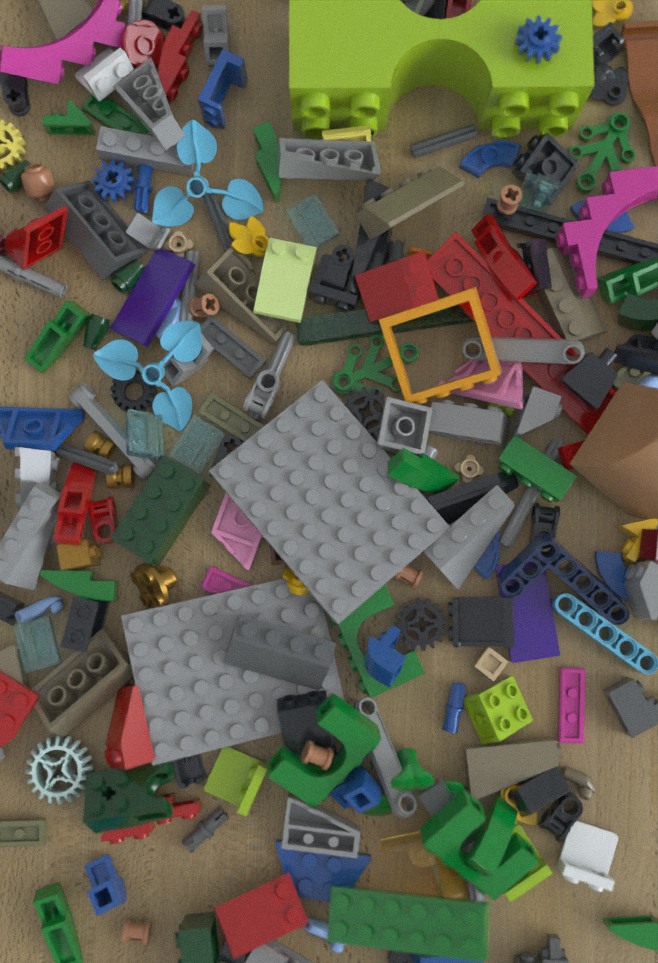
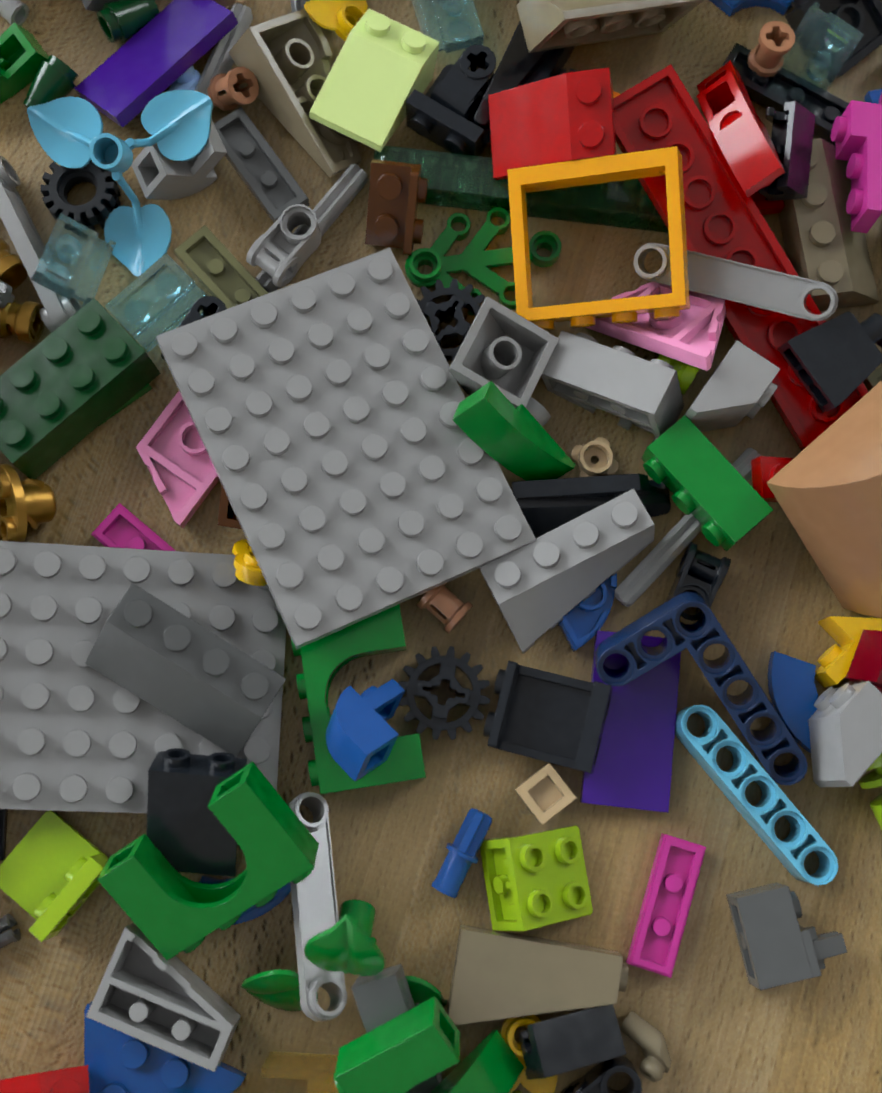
camera: 10 degrees right, 5 degrees down
(316, 352) = (393, 205): none -> reddish brown bracket
(317, 755) = (197, 867): nougat bush -> none
(358, 791) = (251, 951): blue brick -> none

